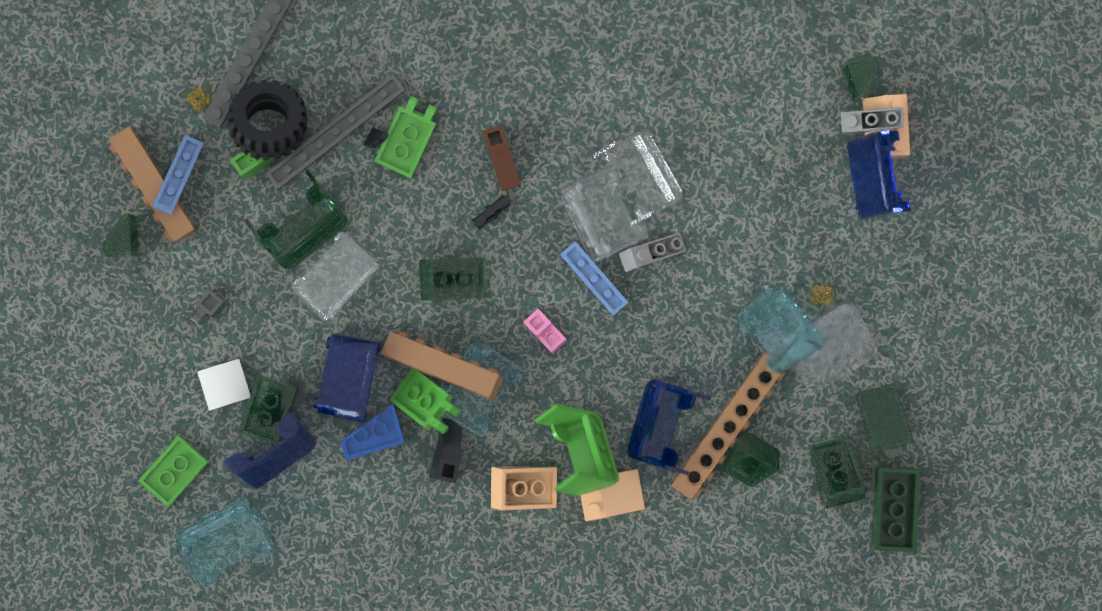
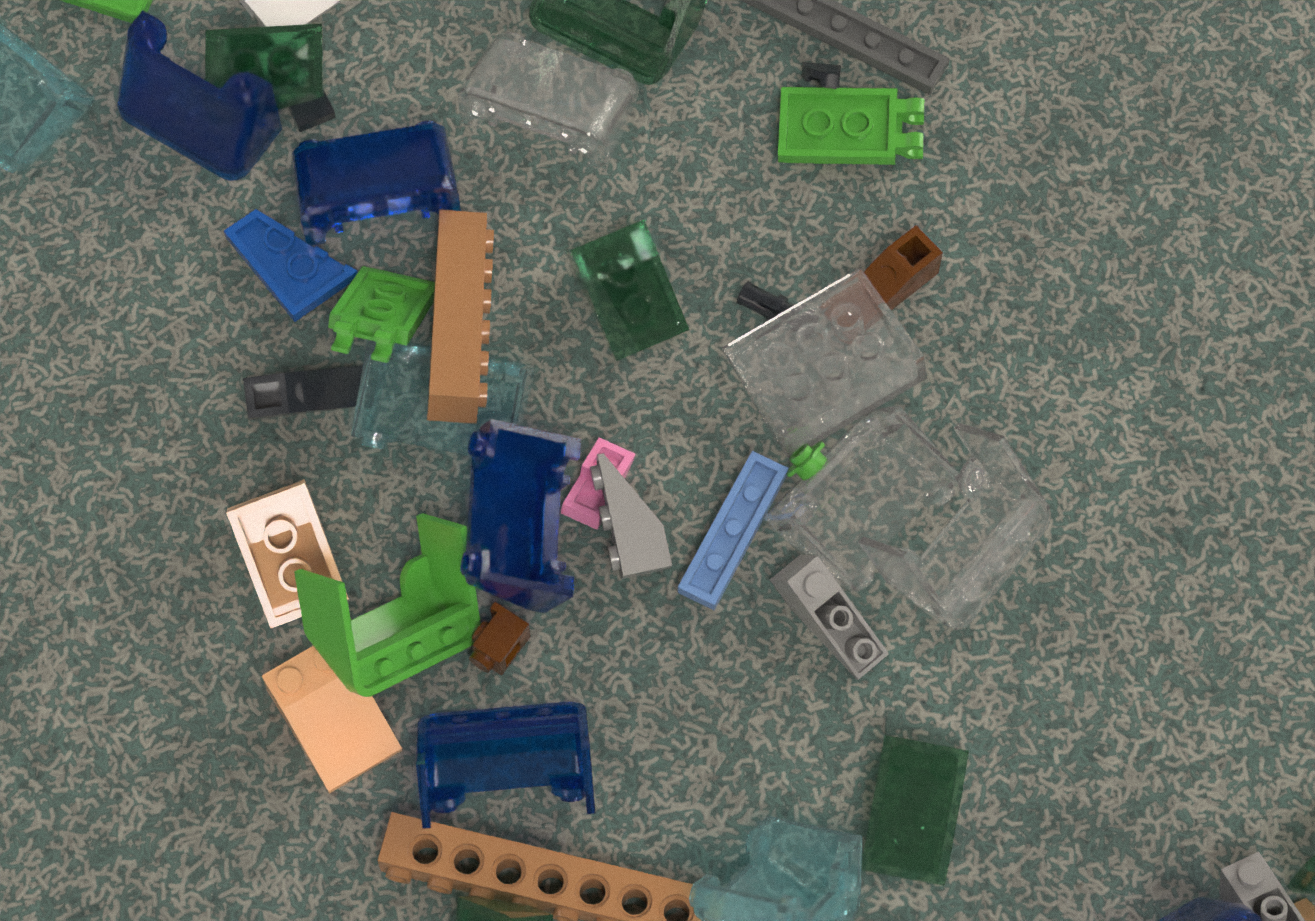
camera: 70 degrees right, 20 degrees down
(531, 203) = (826, 362): none -> clear slope
(558, 378) = (516, 514): none -> clear blue windscreen
(575, 231) = (807, 461): none -> bright green plate
(580, 324) = (636, 531): none -> light grey slope
(606, 407) = (499, 640): none -> reddish brown brick
(758, 253) = (914, 810): none -> clear green slope

